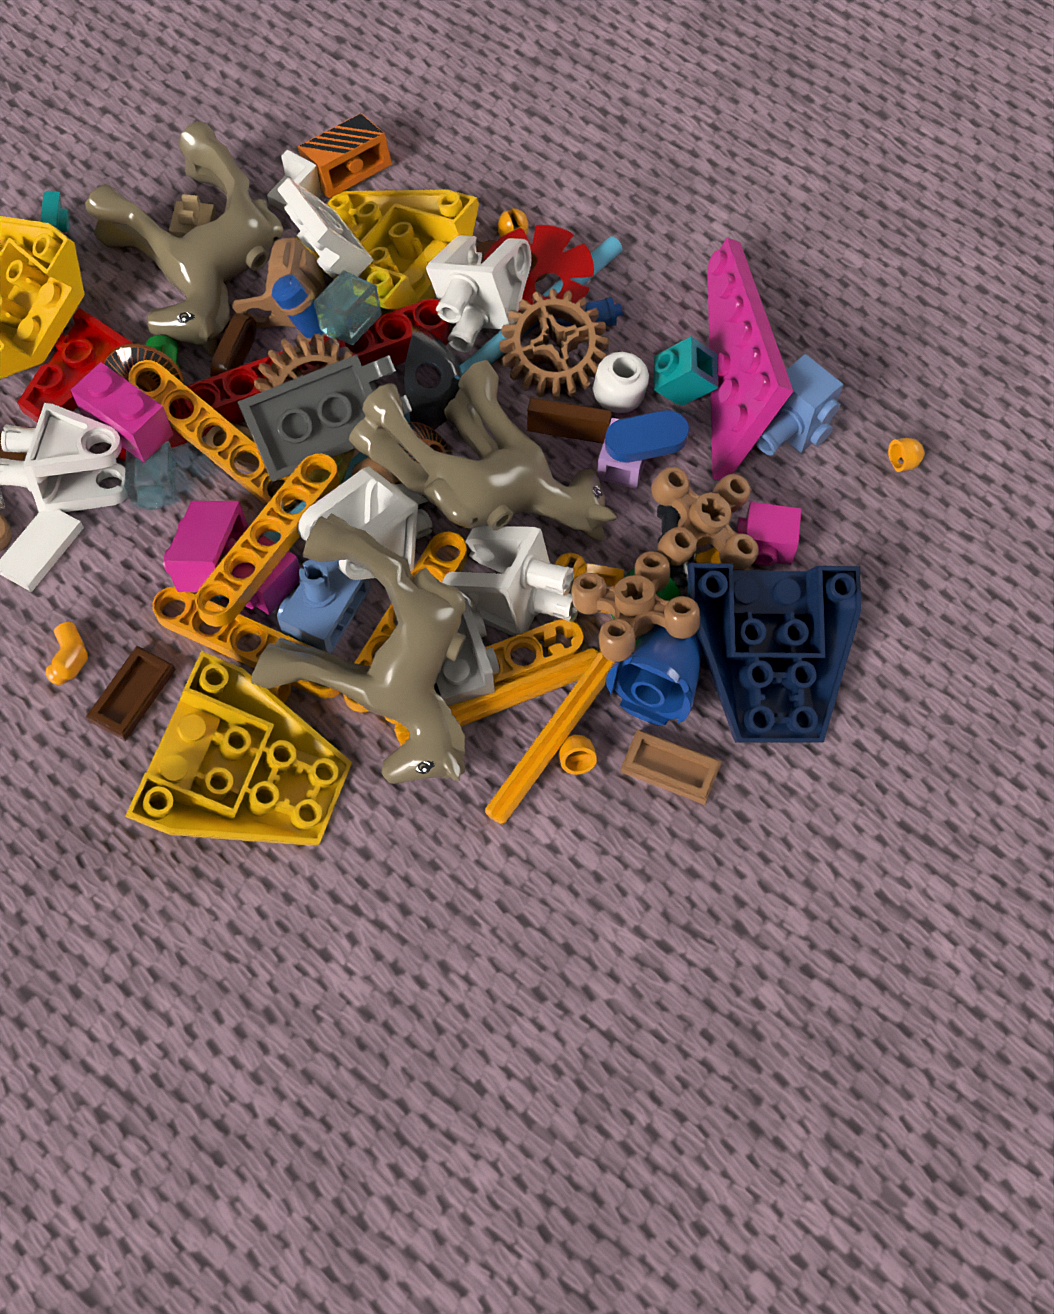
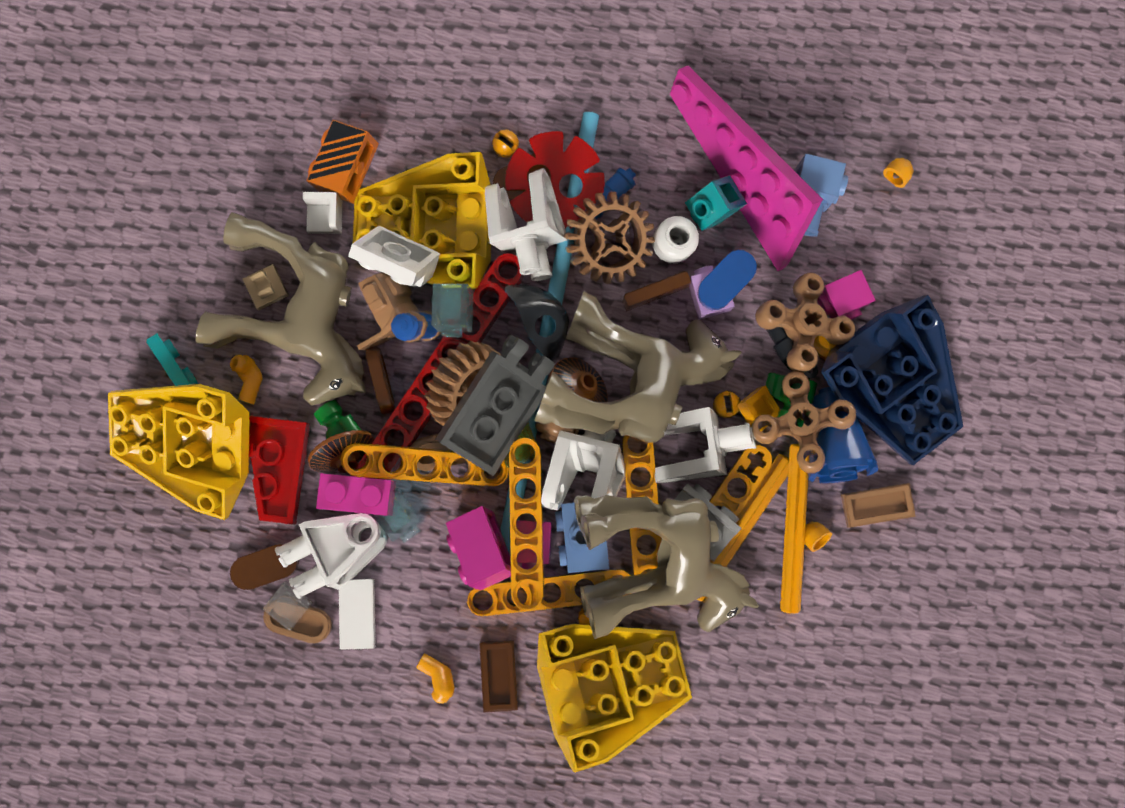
camera: 35 degrees left, 20 degrees up
(115, 285) = (250, 376): none -> light orange arm

